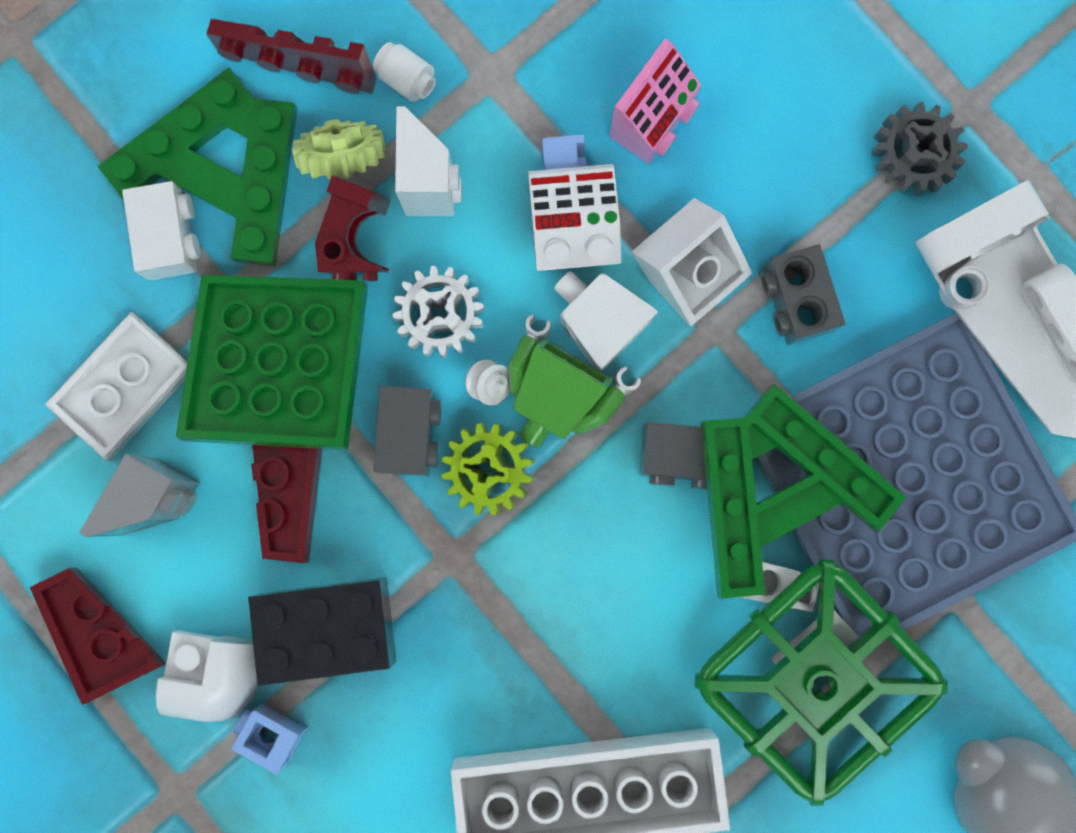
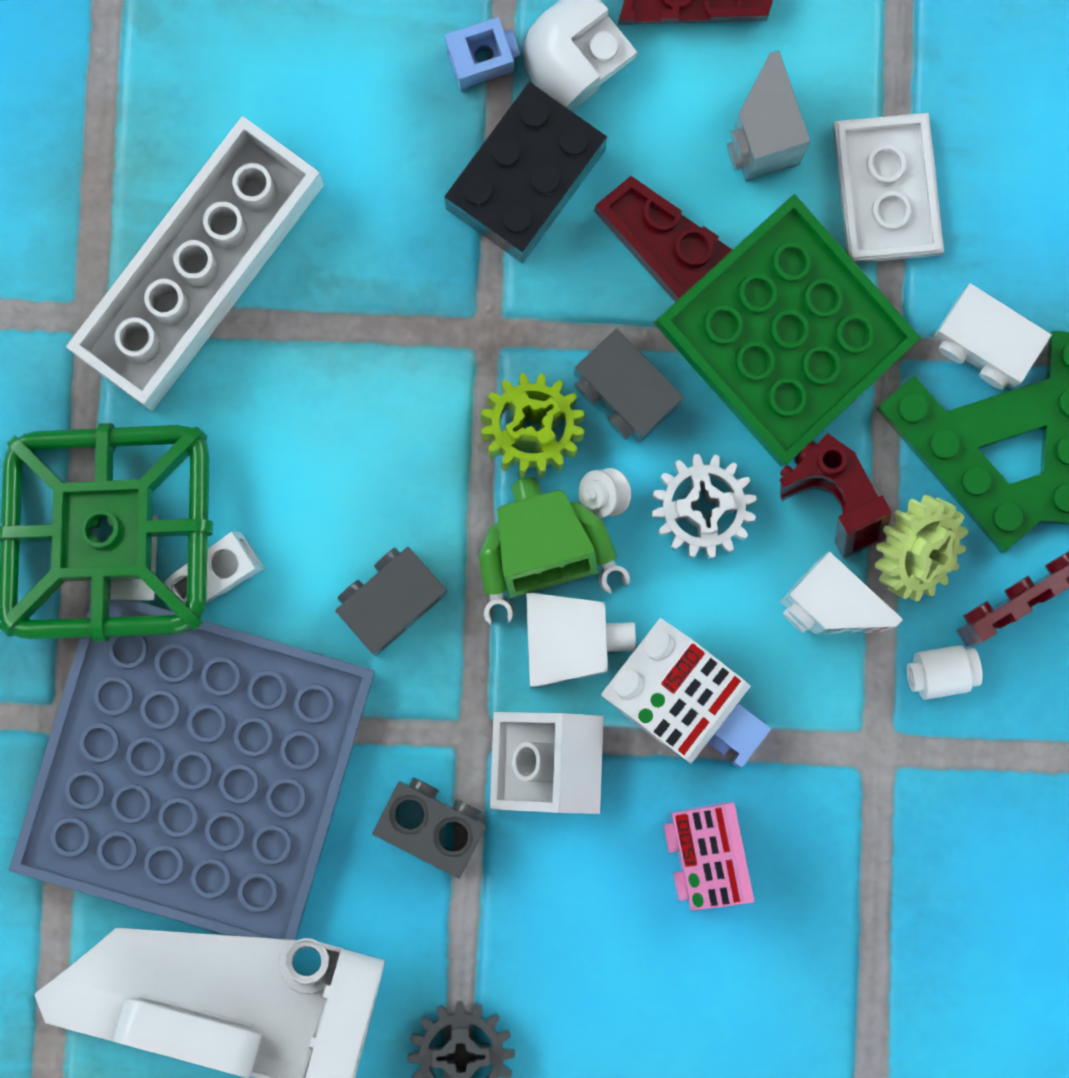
camera: 130 degrees right, 0 degrees up
(742, 524) = (288, 584): green plate -> none

